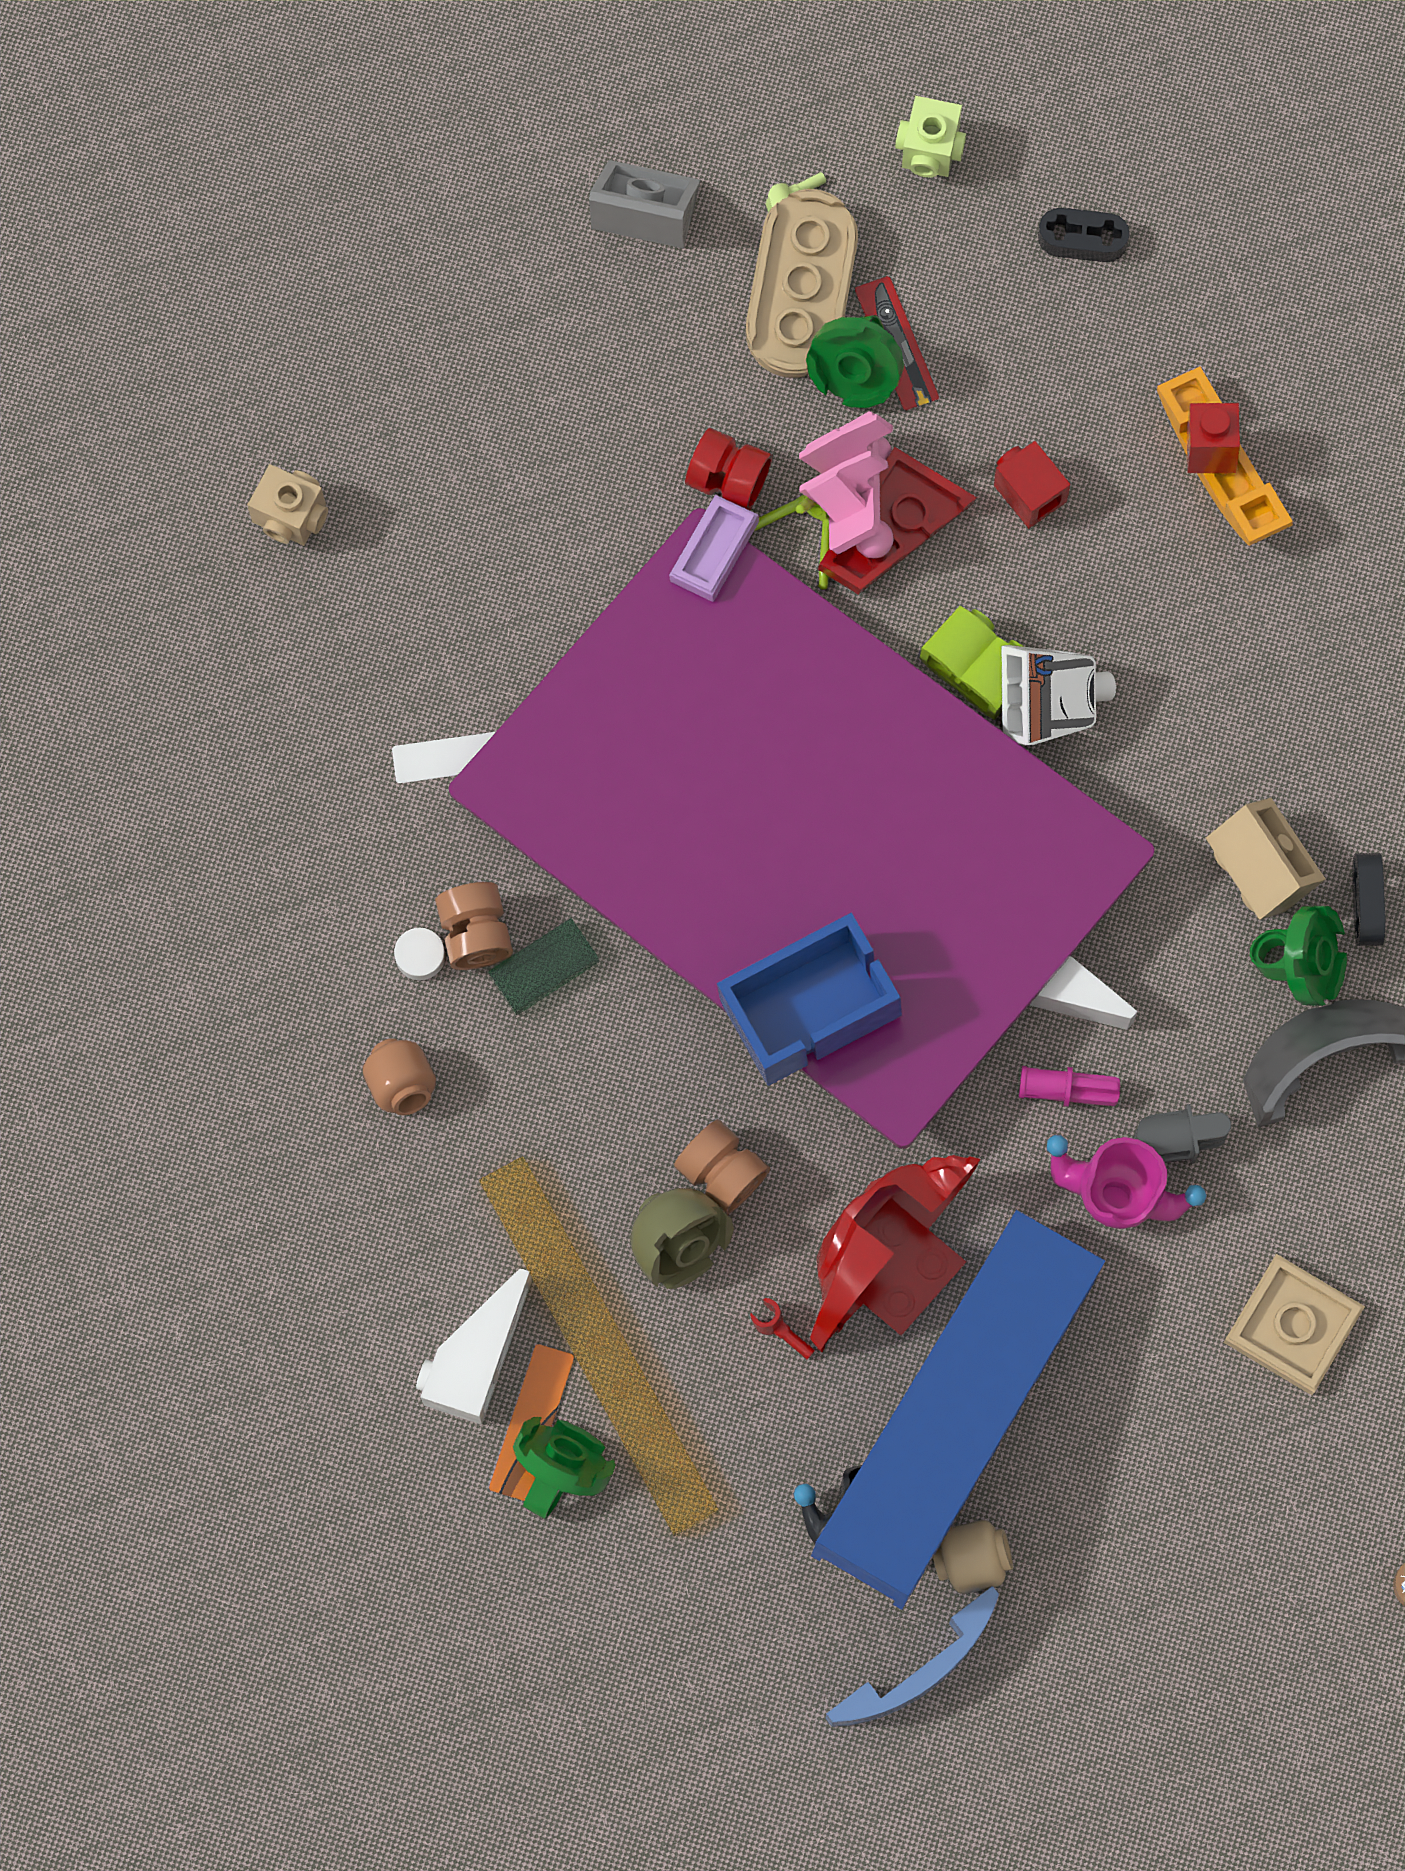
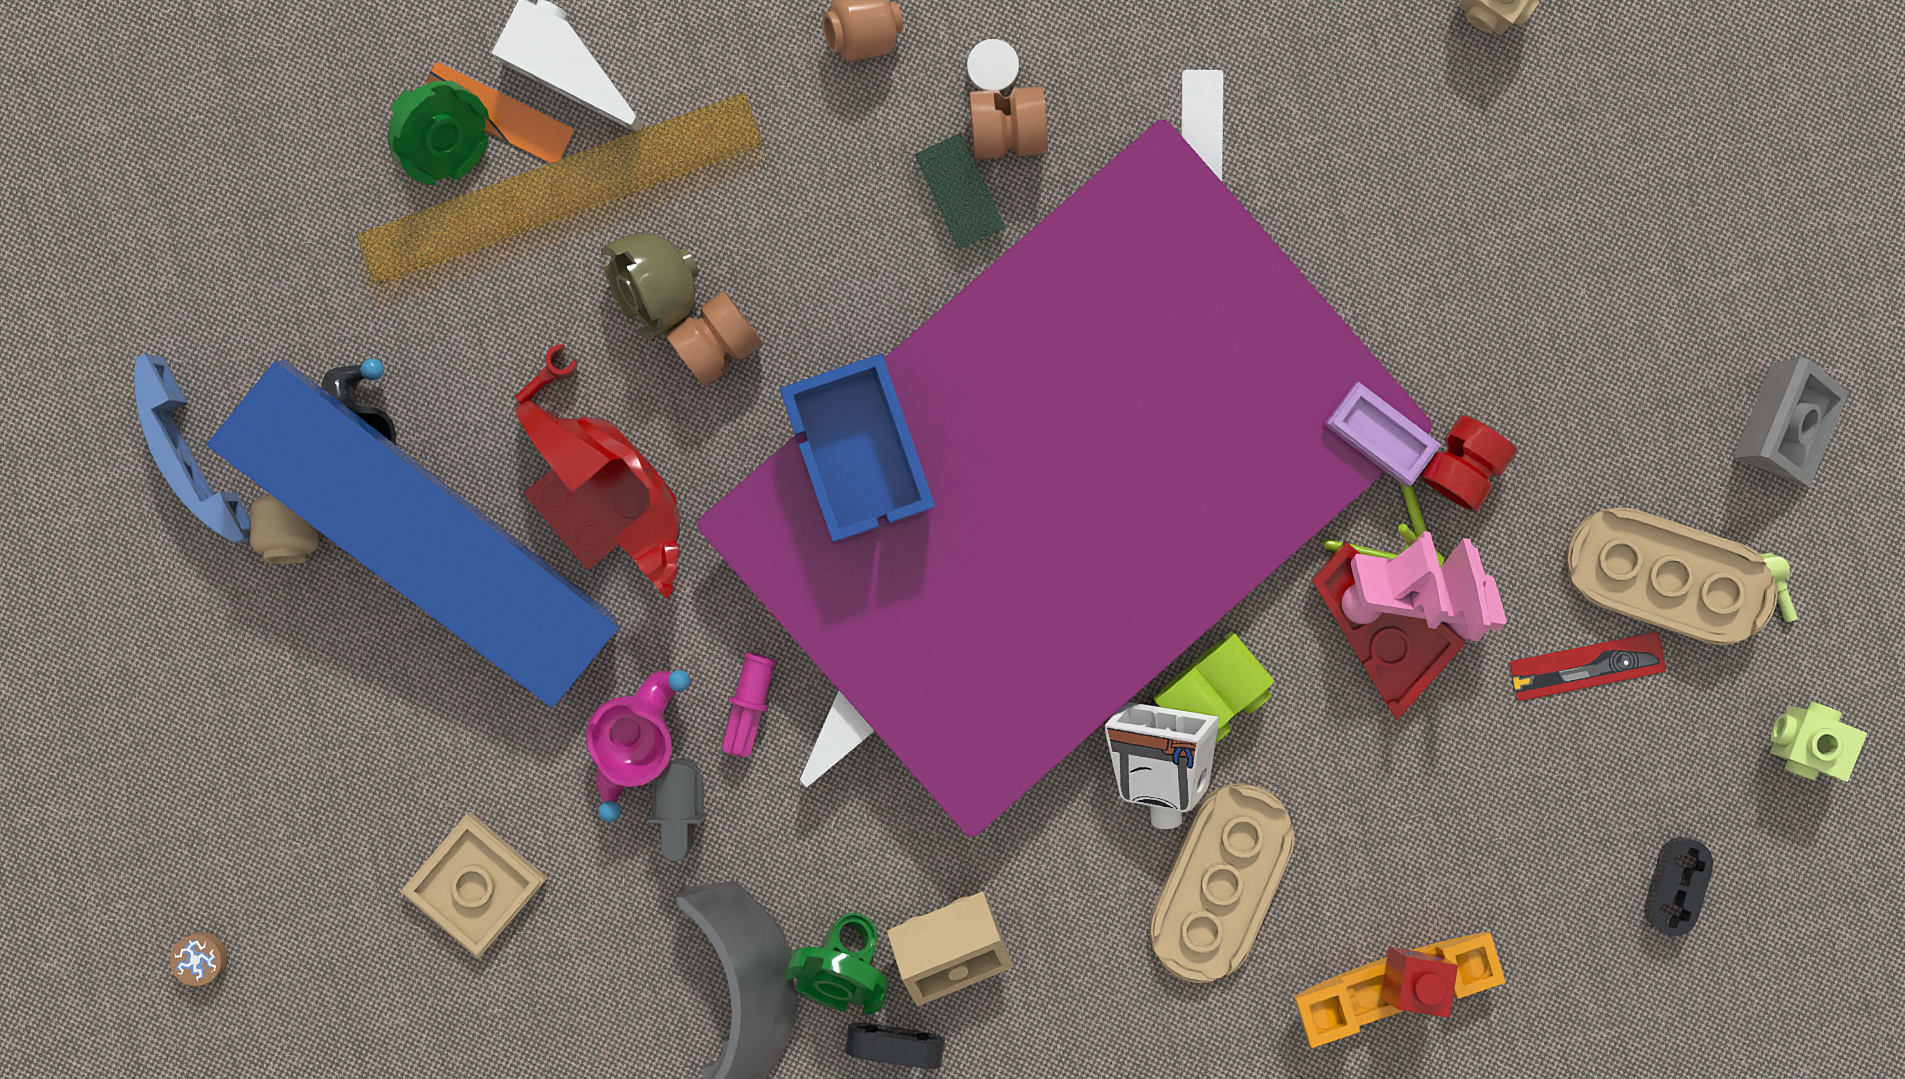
camera: 95 degrees right, 15 degrees up
(855, 361) = (1570, 618): green tile -> none
(1030, 483) = (1403, 779): red brick -> none
(1158, 631) = (1221, 883): none -> tan tile

